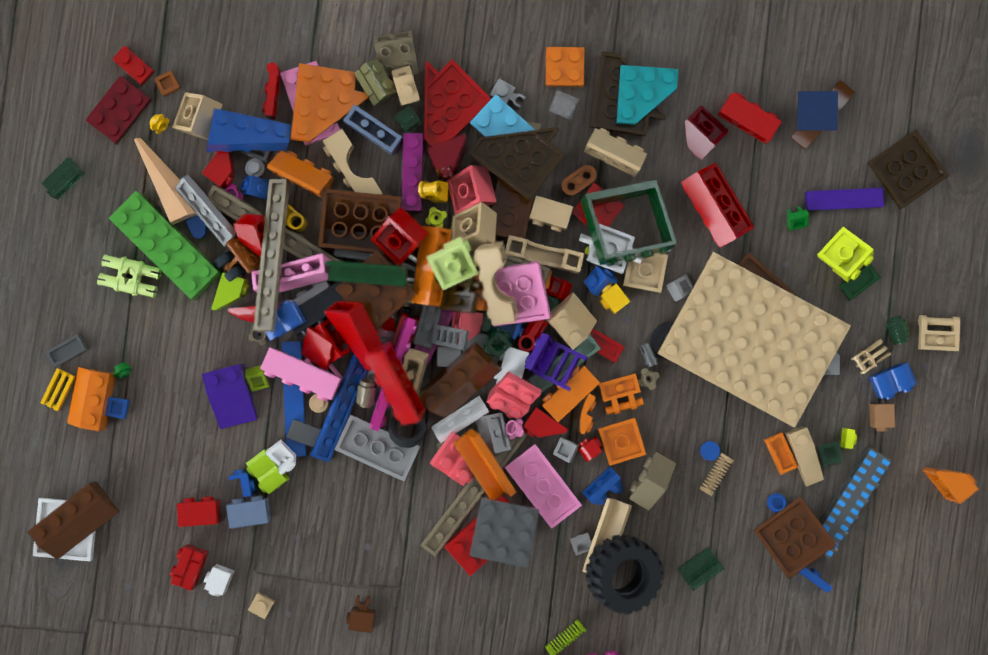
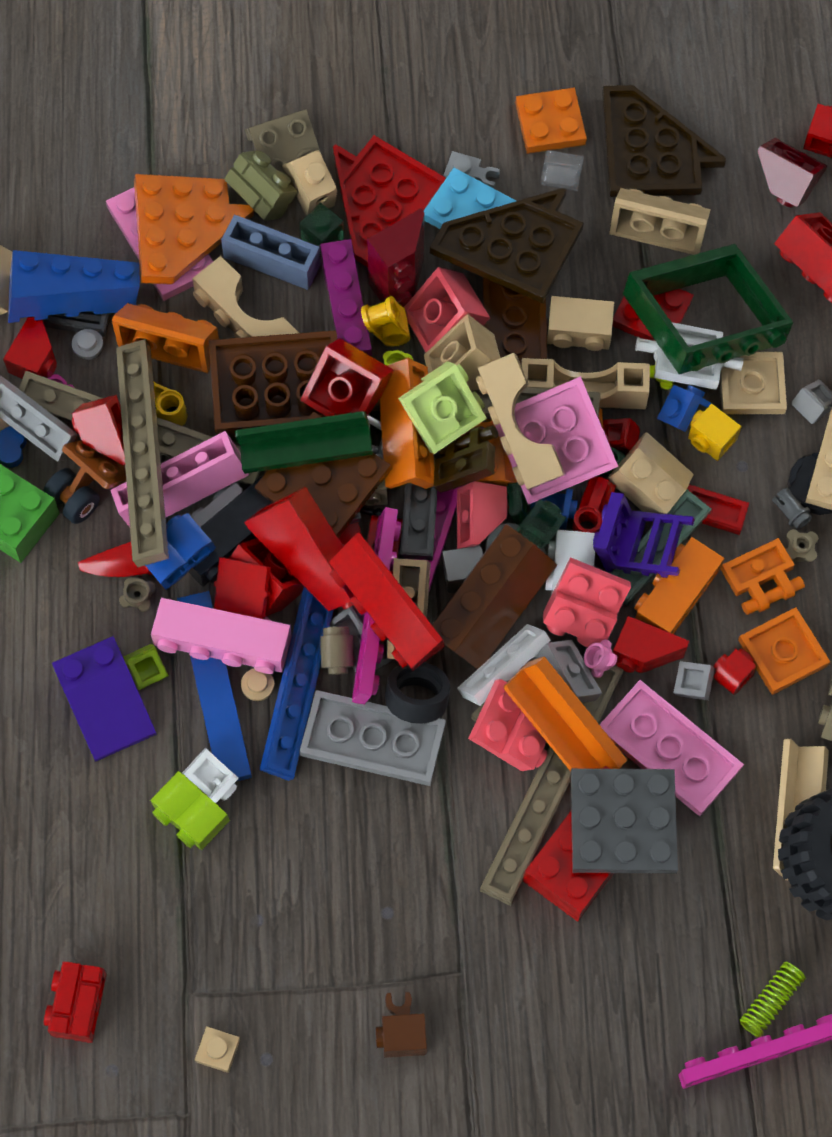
camera: 15 degrees left, 20 degrees down
(198, 512) = (79, 902): red brick -> none
(218, 580) = (133, 1015): white brick -> none
(229, 292) = (77, 535): lime slope -> none
(247, 483) = (160, 839): blue bracket -> none
(248, 512) = (168, 883): sand blue brick -> none
(255, 187) = (94, 369): blue bracket -> none
(272, 91) = (97, 222): red plate -> none
(303, 433) = (241, 735): dark grey slope -> none
(449, 337) = (458, 526): dark grey slope -> none
(578, 180) = (611, 273): dark orange plate -> none
(581, 543) = (758, 830): light grey plate -> none
(585, 420) = (712, 619): orange slope -> none
(606, 481) = (776, 718): blue tile -> none
(642, 91) = (680, 127): teal plate -> none

